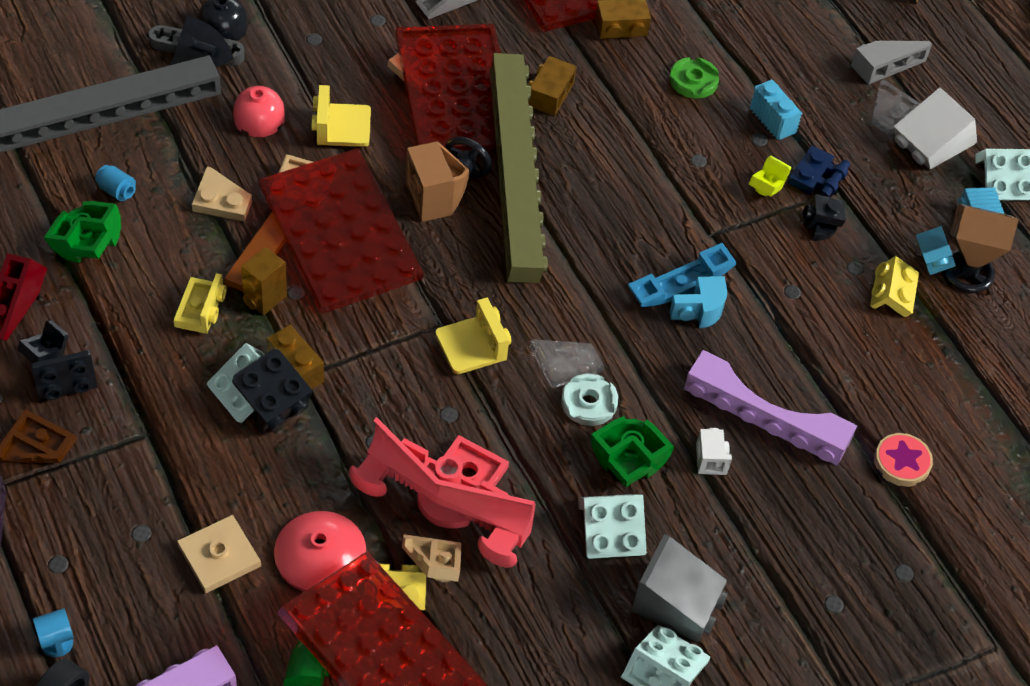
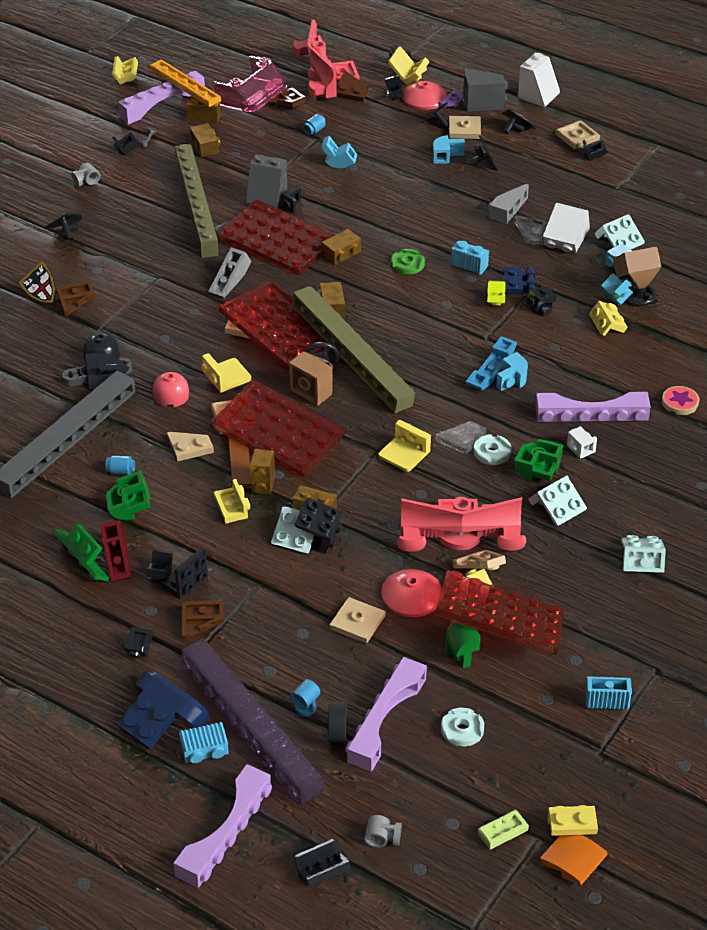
camera: 25 degrees left, 10 degrees down
(680, 591) = (621, 513): slope -> none

